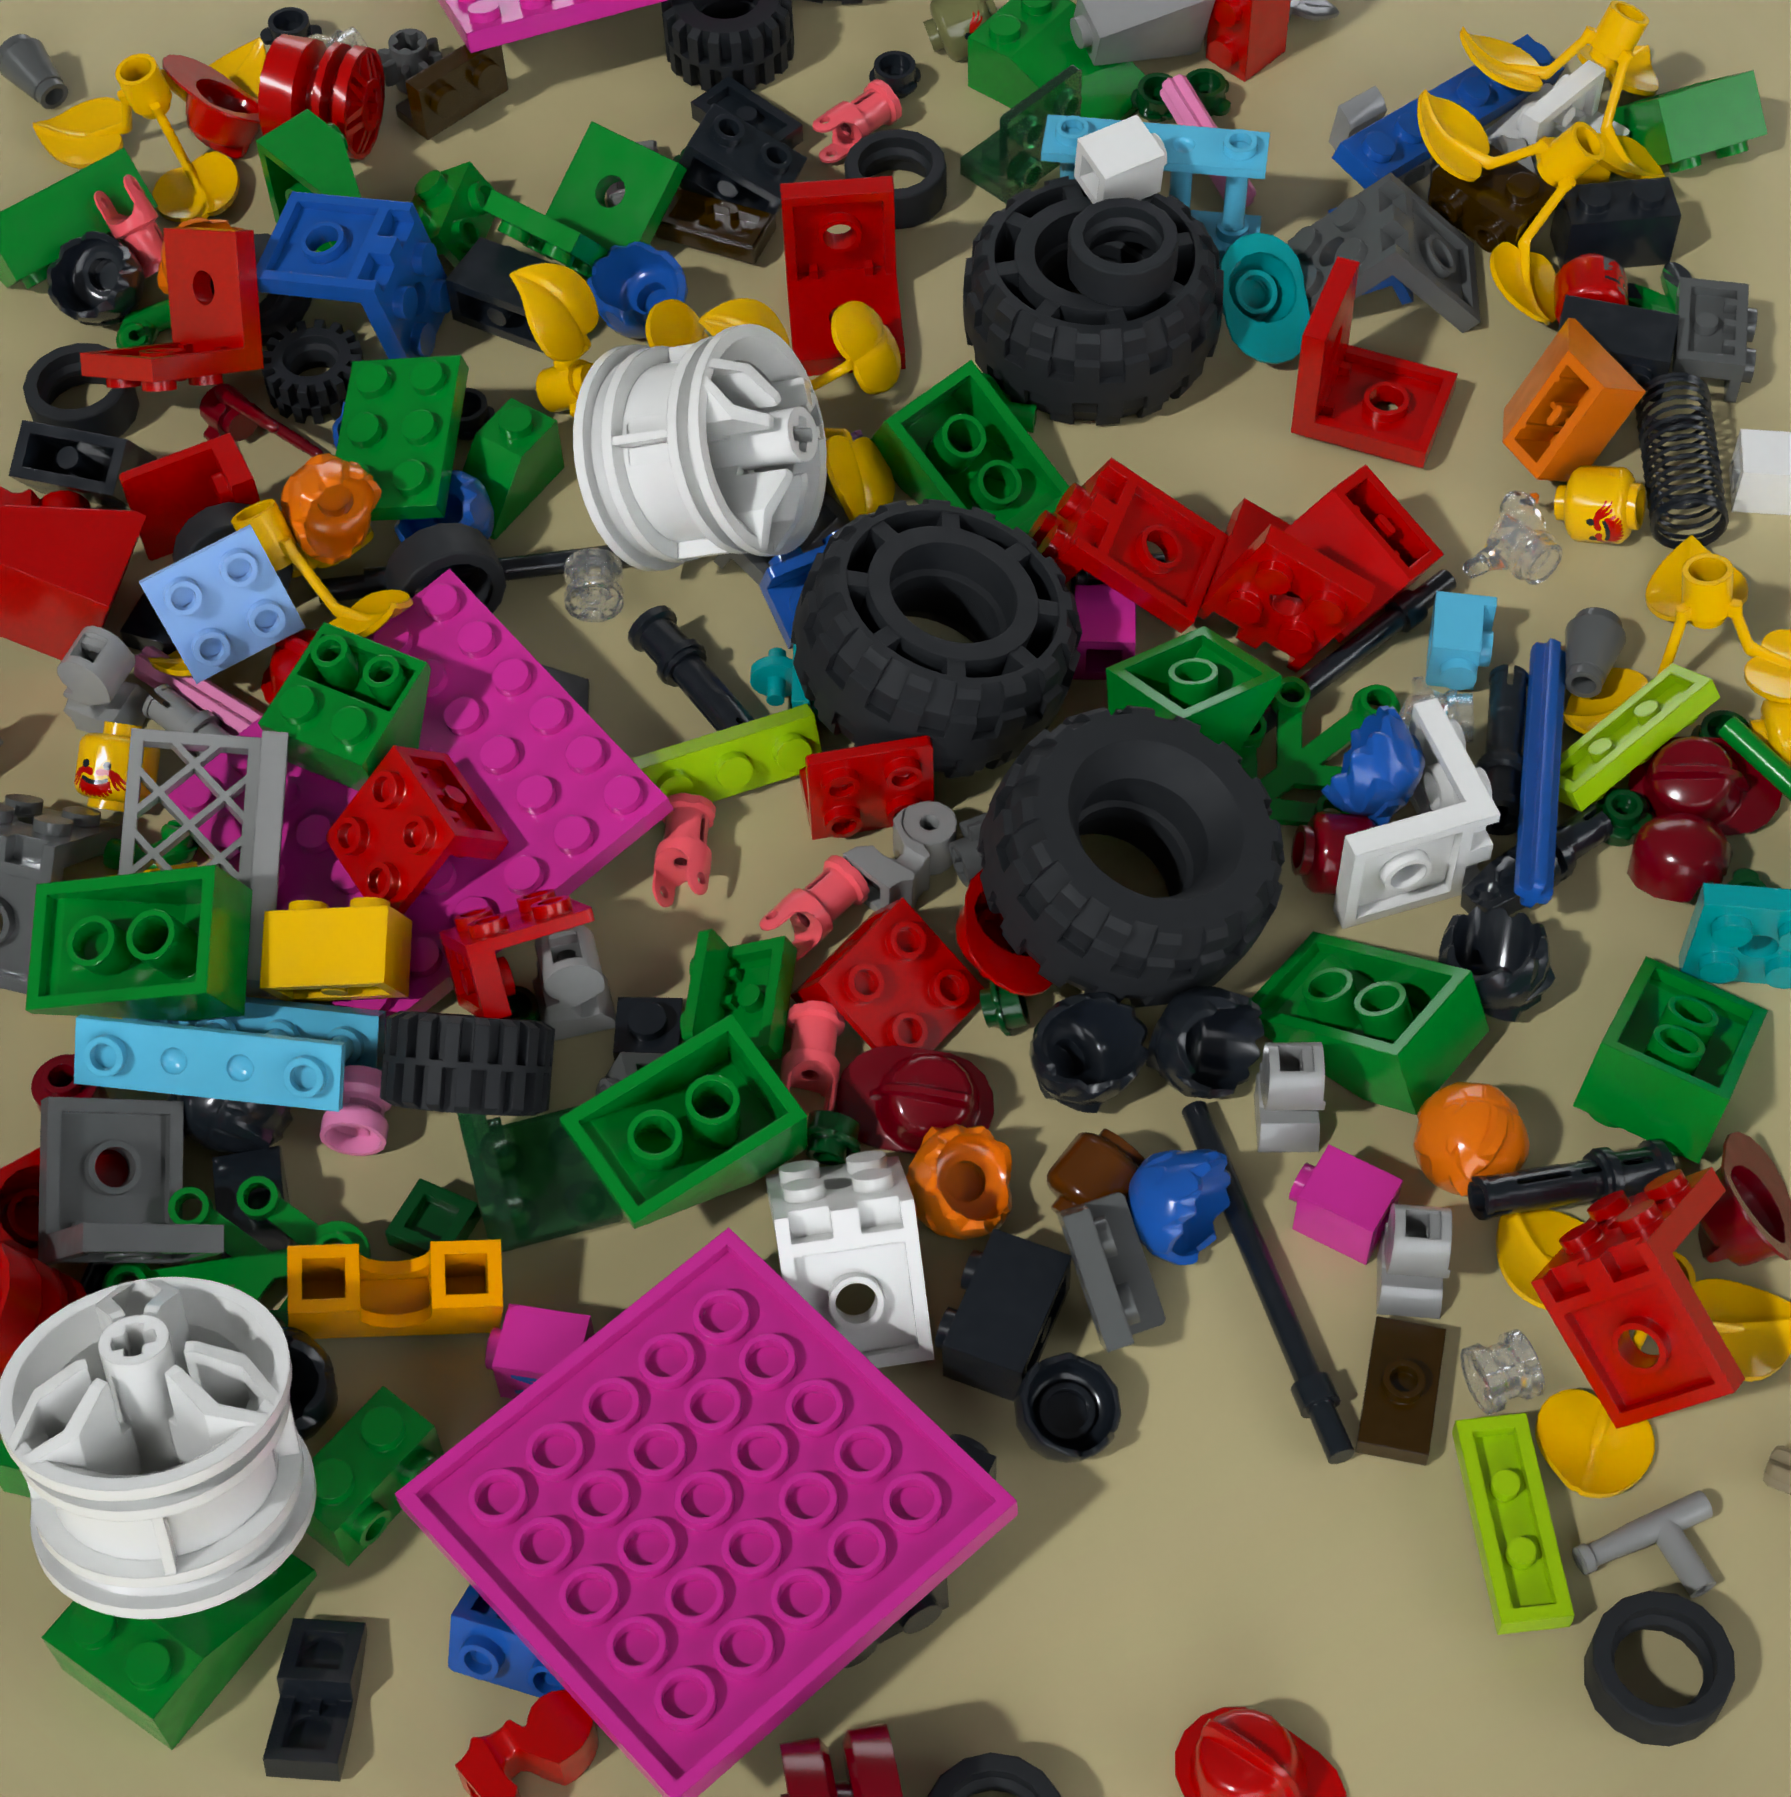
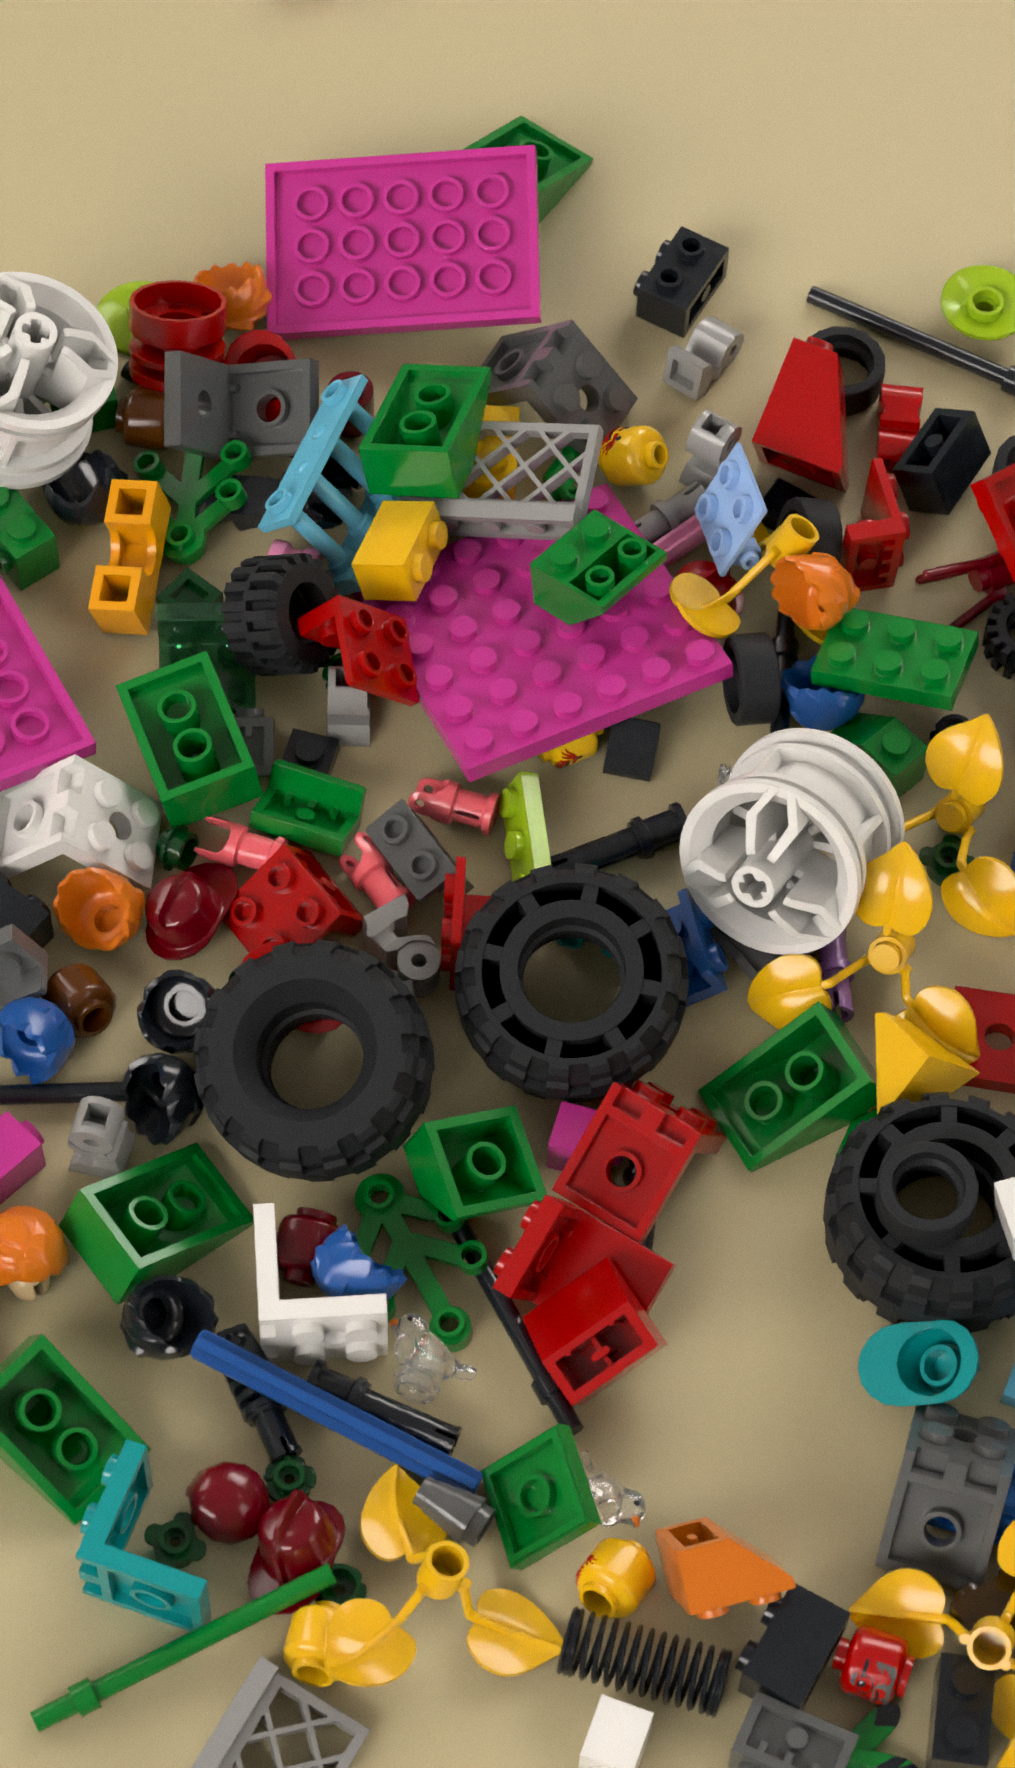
camera: 100 degrees right, 5 degrees up
(409, 823) = (491, 610): red bracket -> none
(532, 1345) = (68, 640): dark pink brick -> none
(777, 860) = (412, 850): none -> dark grey bracket
(931, 343) = (913, 1062): none -> yellow slope
(1344, 382) = (811, 1392): red bracket -> none
(1459, 639) = (496, 1407): medium azure brick -> none
(1548, 570) = (540, 1497): none -> green tile
(1632, 734) = (348, 1496): lime plate -> none

